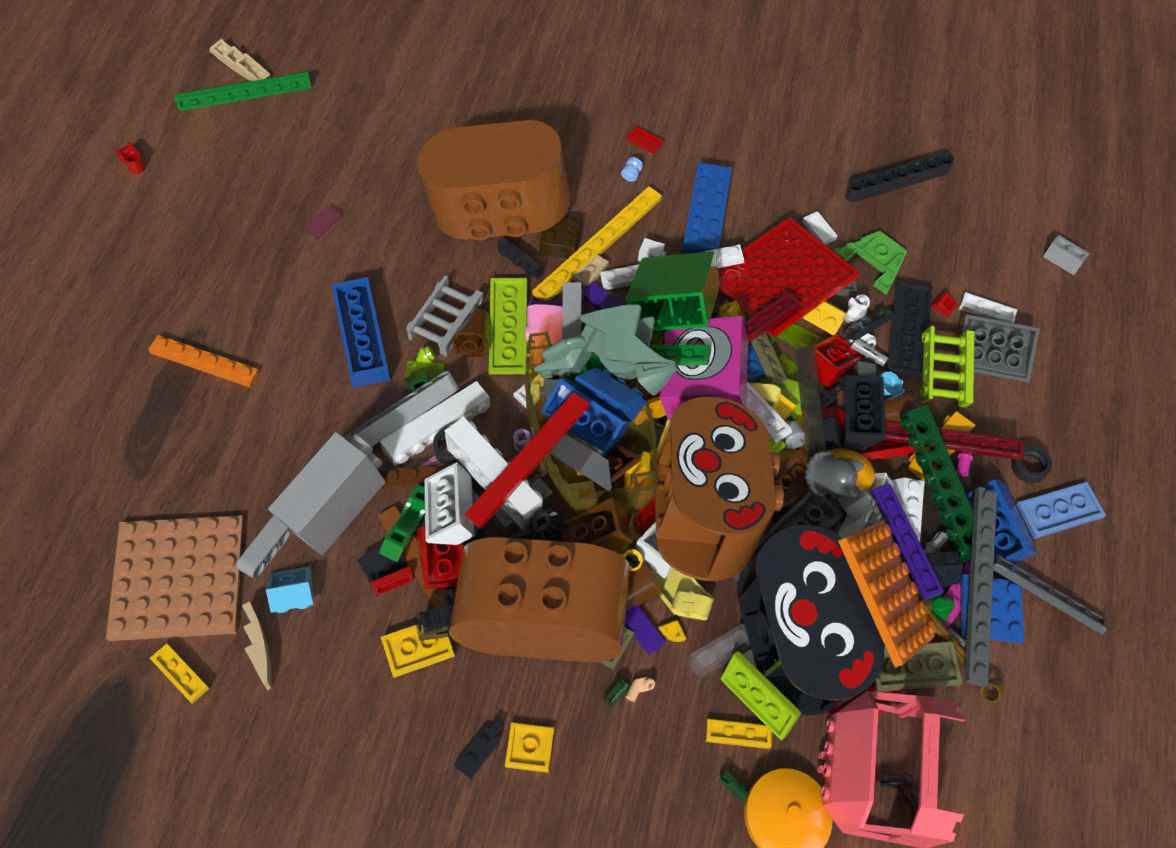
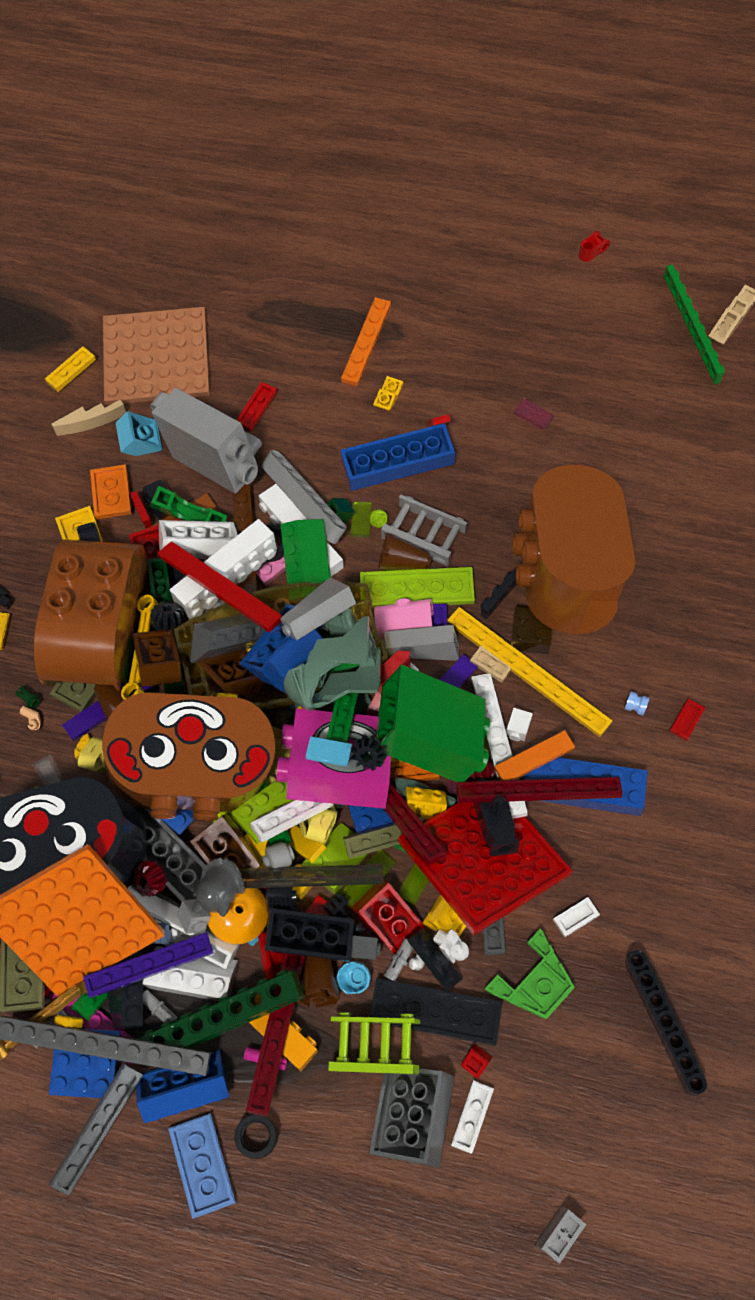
camera: 95 degrees right, 5 degrees up
(270, 465) = (256, 406): none -> red plate
(275, 342) = (388, 394): none -> yellow slope
(324, 293) = (438, 420): none -> red tile
(362, 617) = (110, 492): none -> orange plate
(484, 408) = (305, 551): none -> green slope
(562, 361) = (317, 608): none -> light grey slope
(689, 229) = (535, 757): none -> orange tile
(716, 324) = (365, 745): none -> black gear
(717, 355) = (328, 751): none -> medium azure panel
(723, 231) = (539, 789): none -> dark red tile
(748, 264) = (497, 825): none -> black piece
(960, 621) = (68, 1021): none -> yellow tile

